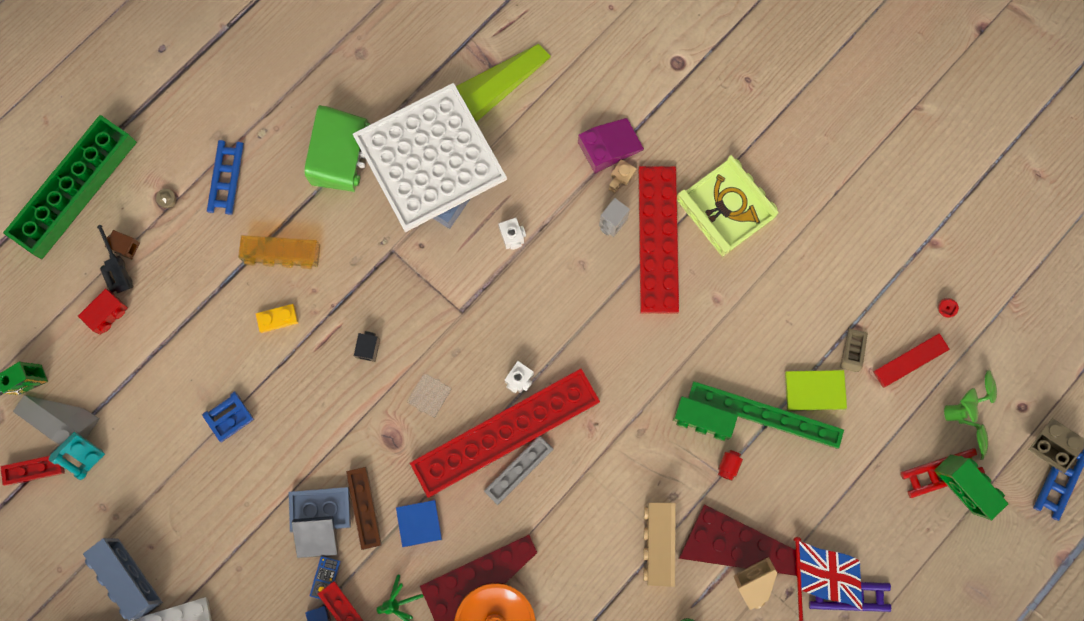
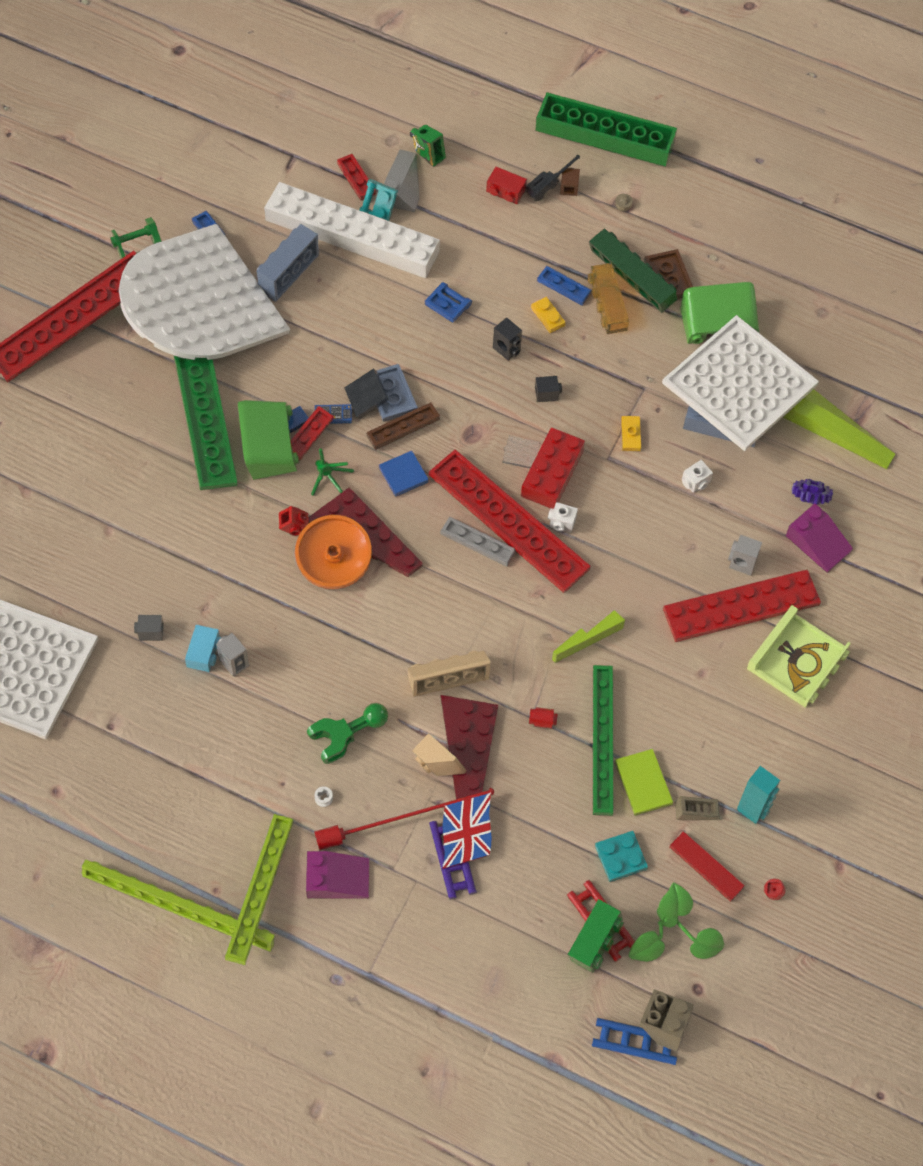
camera: 70 degrees right, 15 degrees down
(100, 496) = (353, 230): none -> white brick
(218, 168) = (634, 237): blue bar -> none
(246, 291) = (564, 285): none -> blue tile
(256, 216) = (633, 270): none -> dark green brick
(271, 183) = (672, 268): none -> reddish brown plate
(299, 369) = (507, 339): none -> black brick
(441, 280) = (631, 433): none -> yellow plate
(461, 370) = (552, 468): none -> red brick
(562, 132) = (812, 491): none -> dark purple gear
(622, 174) = (794, 557): tan plate -> none
(657, 403) = (581, 639): none -> lime slope
(705, 419) = (579, 685): green brick -> none
(875, 291) = (759, 795): none -> teal brick
(884, 435) = (621, 856): none -> teal plate

